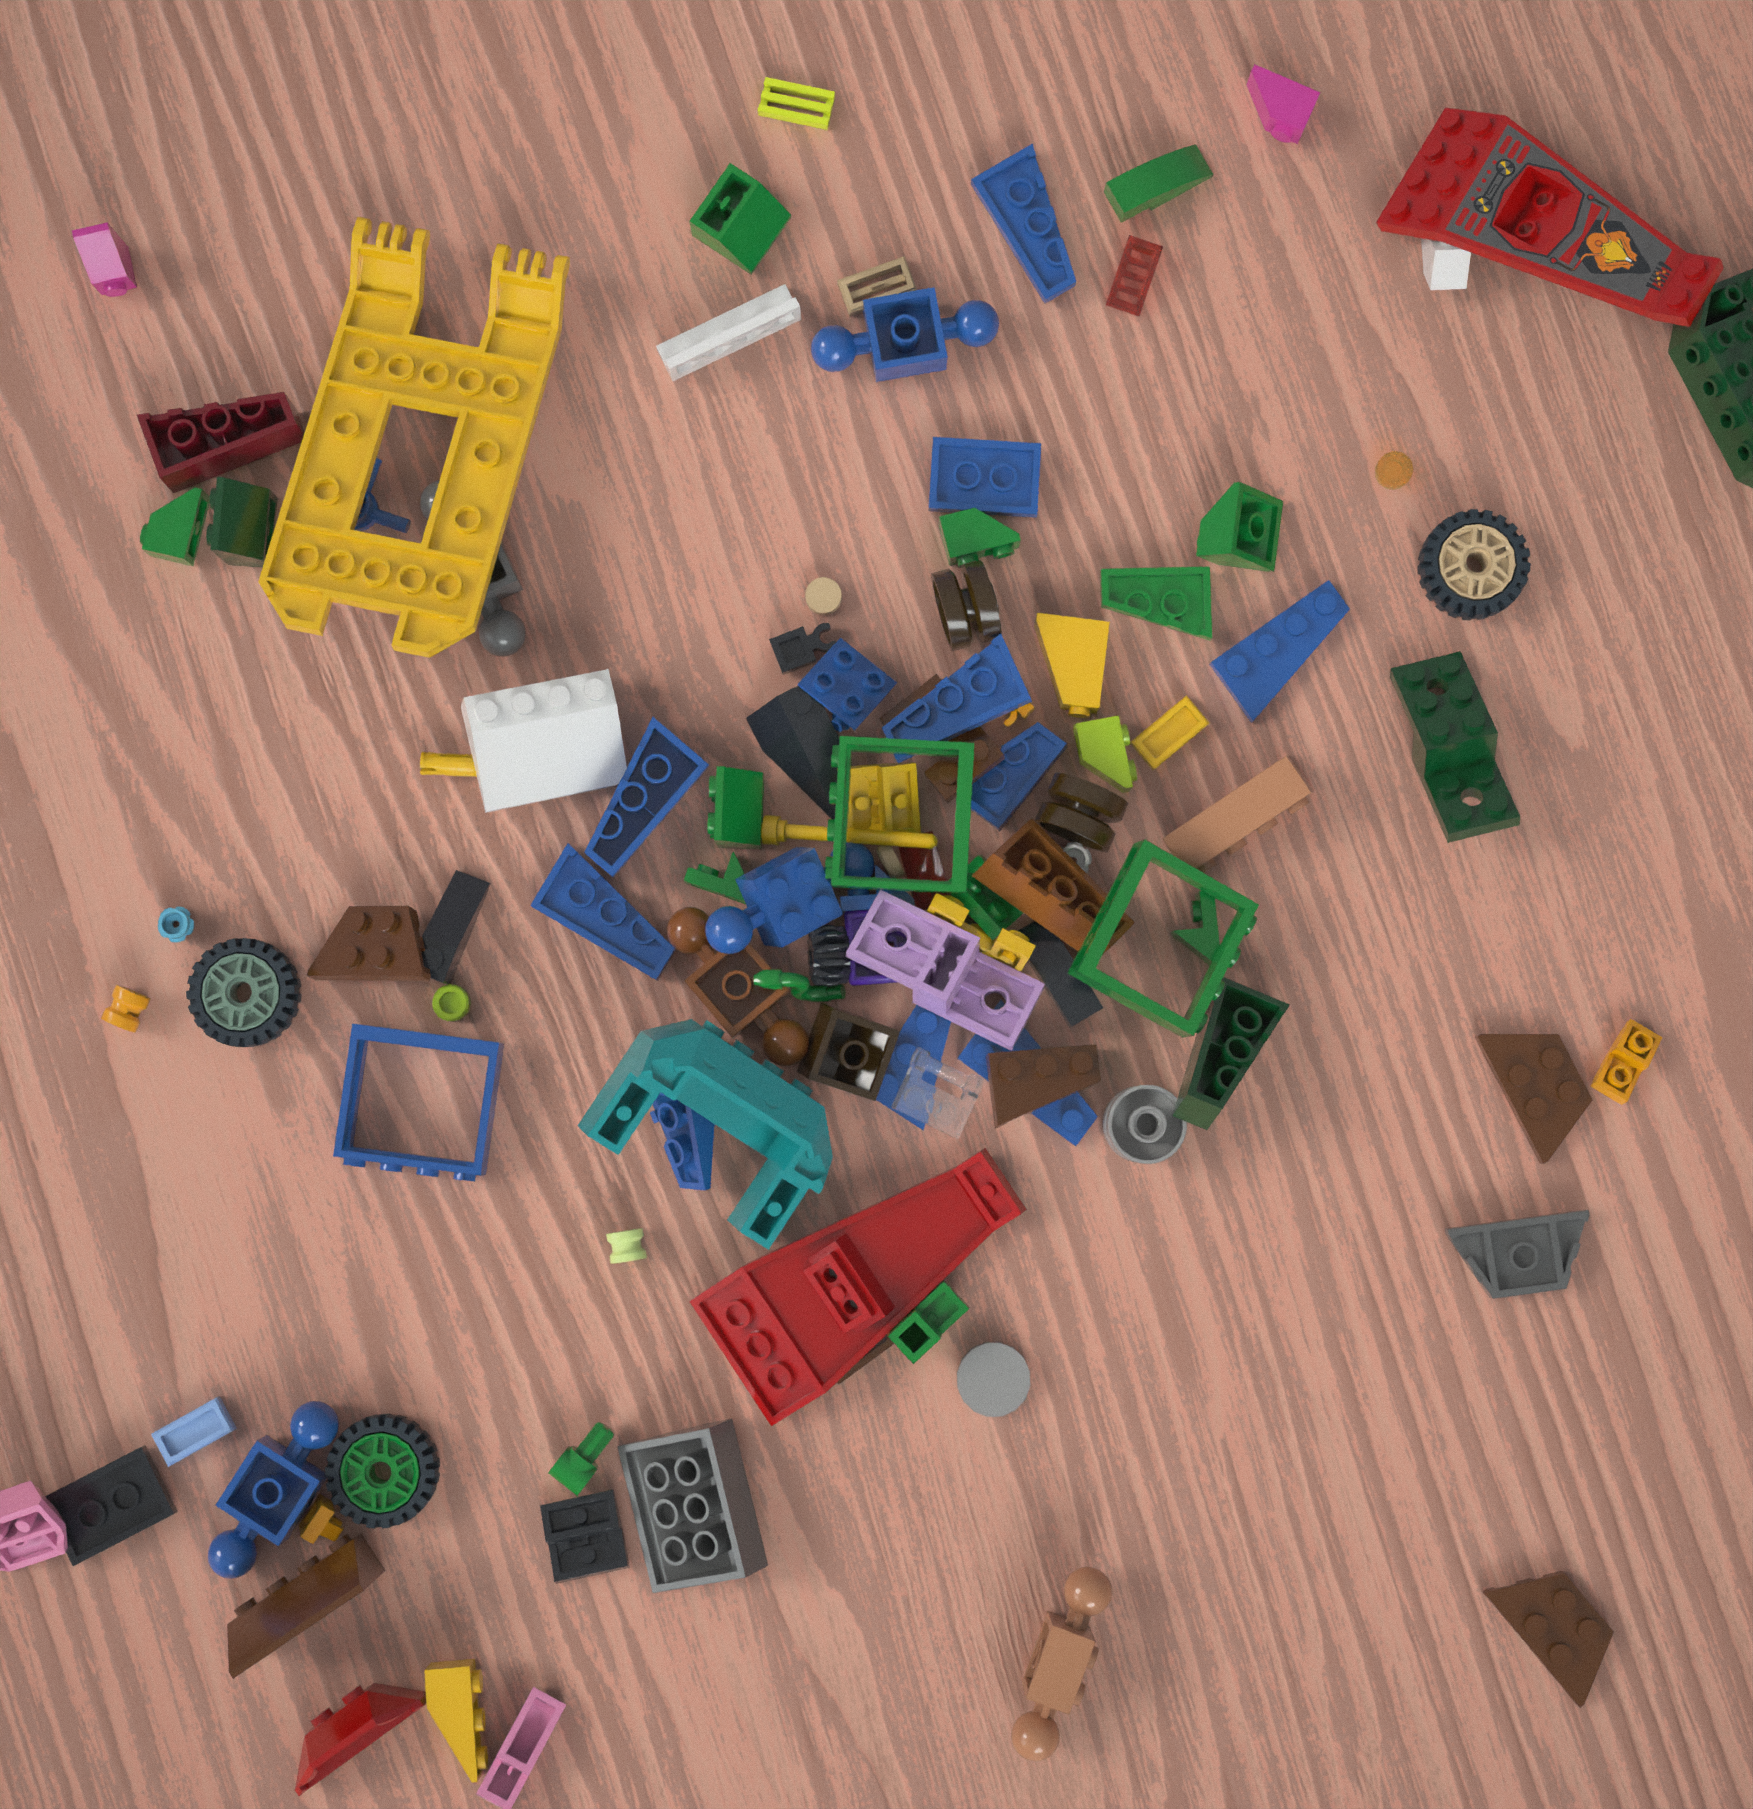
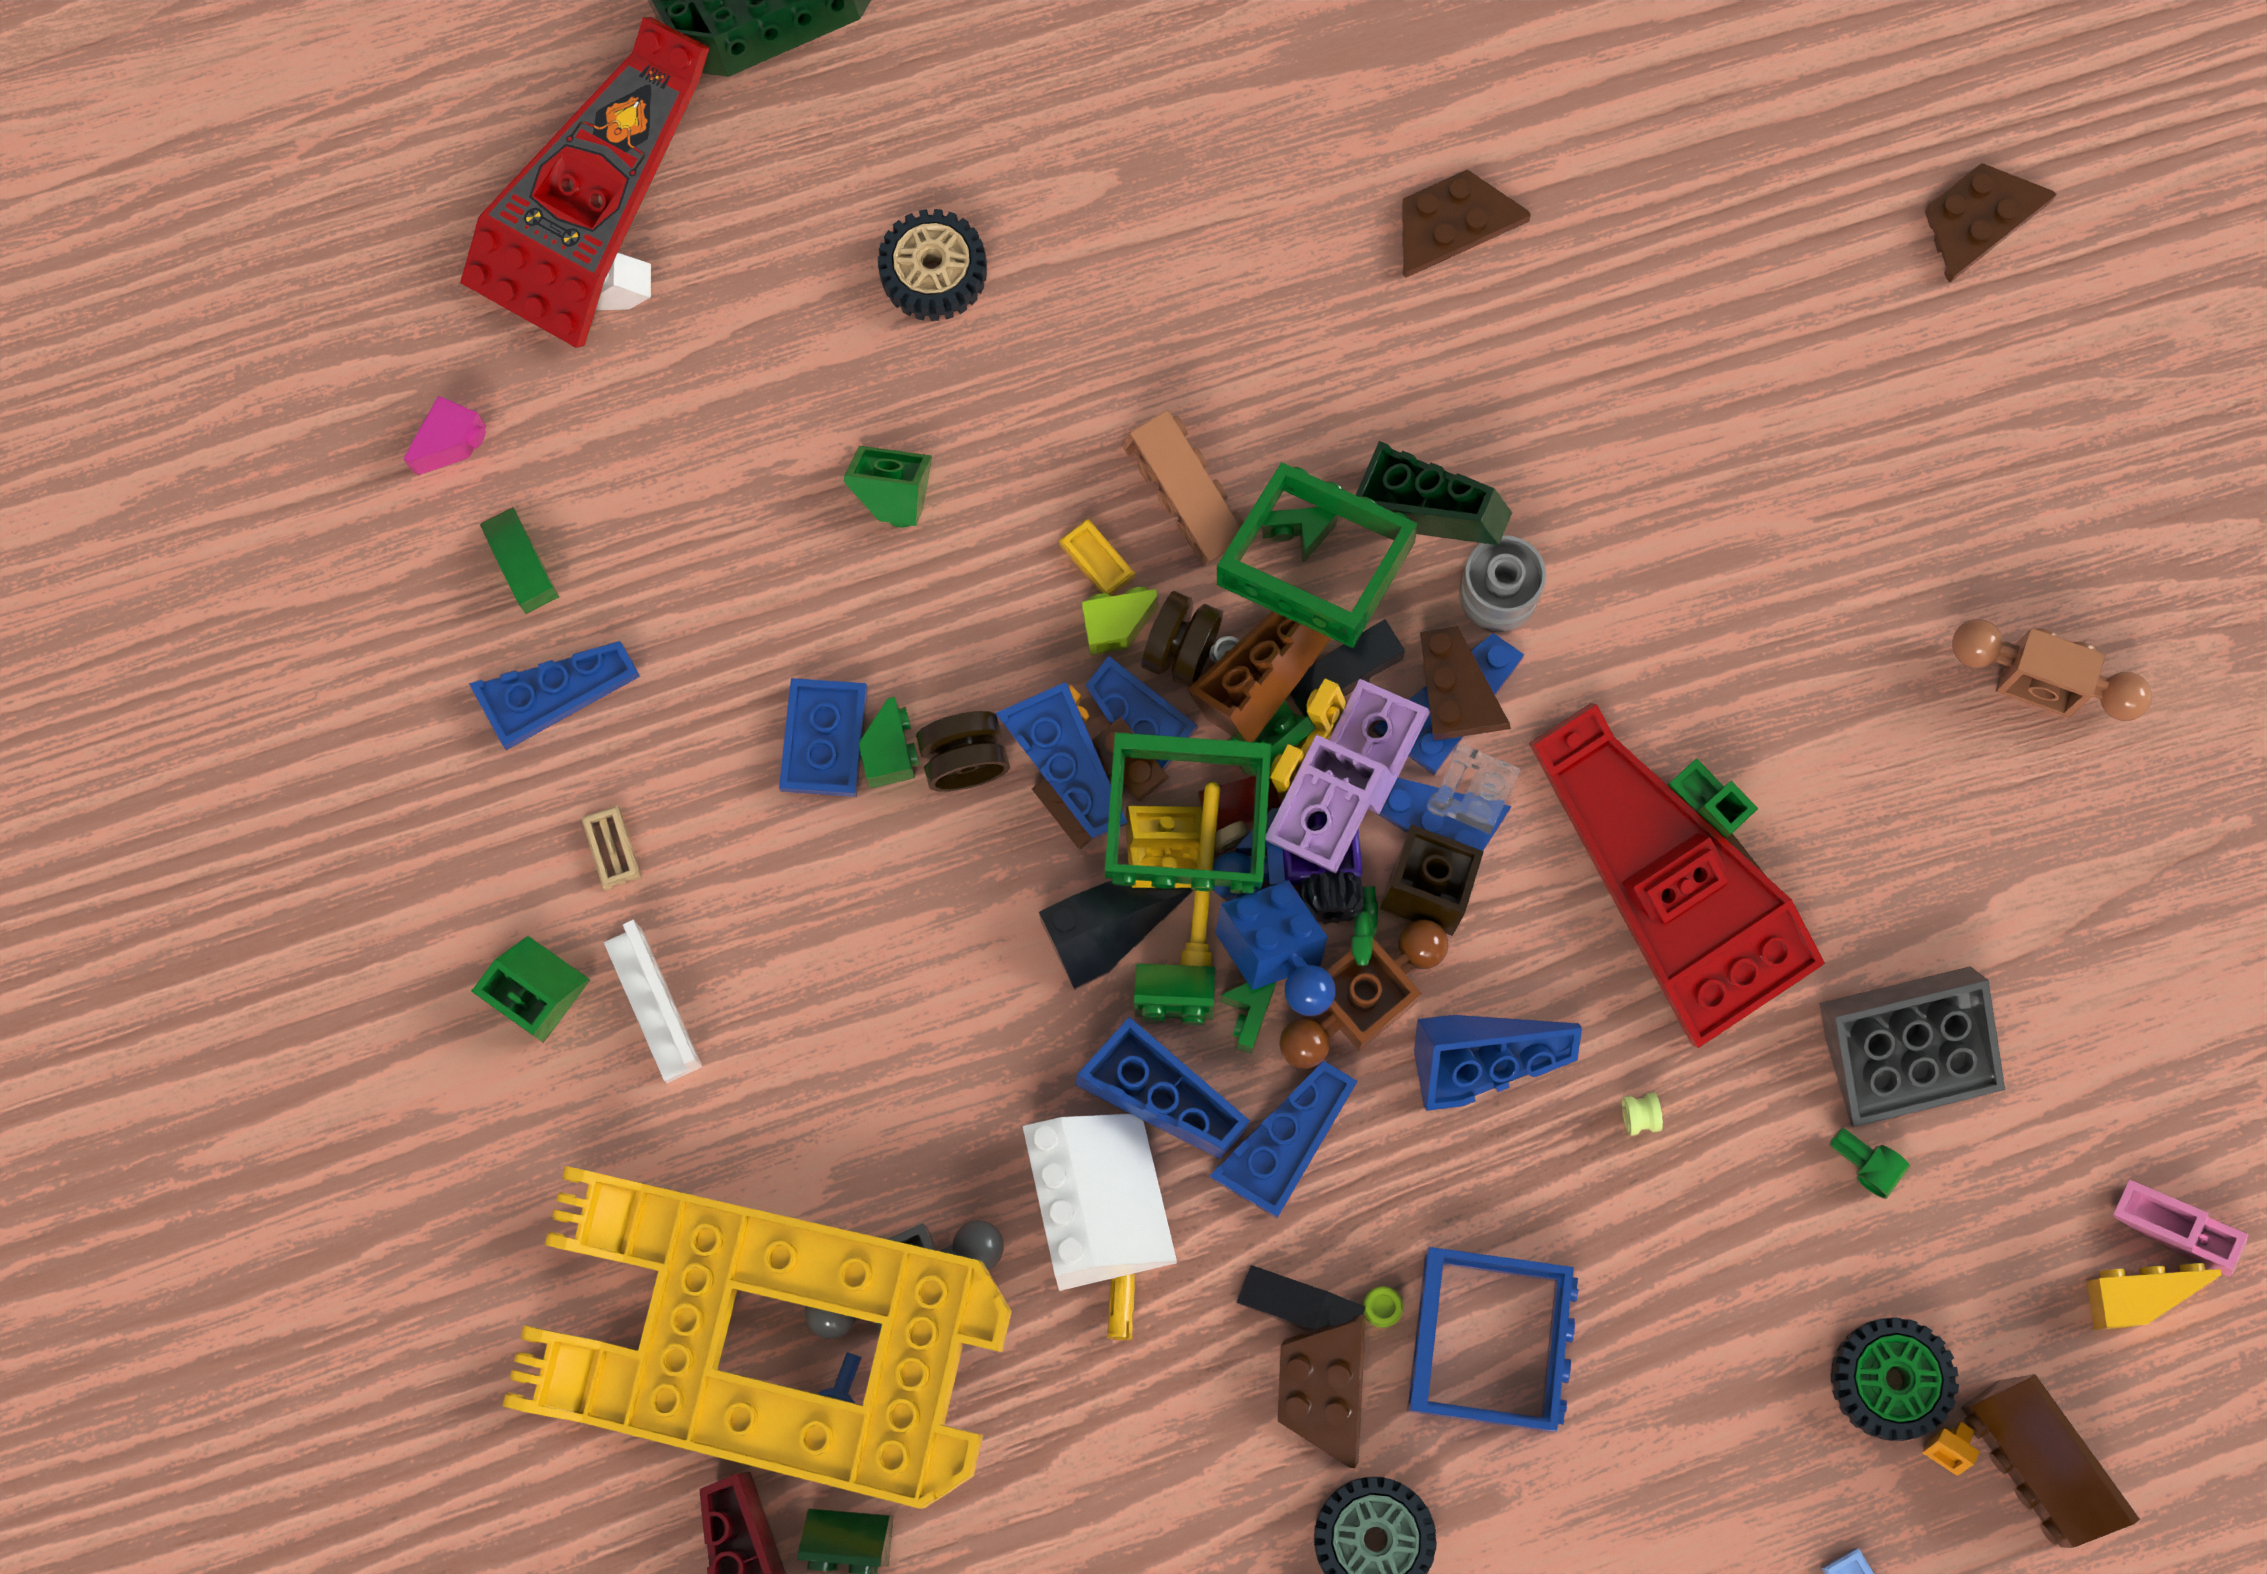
camera: 85 degrees left, 10 degrees down
(272, 1490) = (1924, 1499): blue brick -> none
(352, 1728) = (2171, 1408): red wedge -> none
(584, 1536) = (1950, 1161): black slope -> none
(733, 1093) = (1484, 987): teal wedge -> none
(796, 649) = (1001, 931): black plate -> none
(797, 90) = (390, 928): neon yellow tile -> none
(823, 596) = (944, 905): tan tile -> none
(847, 685) = (1045, 875): blue hinge -> none
(905, 335) = (668, 815): blue brick -> none
(993, 1379) = (1765, 740): light grey tile -> none
(1075, 660) = (1021, 648): yellow slope -> none
(1142, 246) = (621, 574): clear red slope -> none
(1162, 596) = (955, 562): green wing -> none
(1273, 653) = (1015, 455): blue wing -> none
(1393, 470) = (832, 339): clear yellow tile -> none
(1454, 747) = (1118, 282): dark green bracket -> none
(1522, 1252) = (1618, 236): dark grey wing -> none
(1625, 1061) = (1426, 140): light orange slope -> none

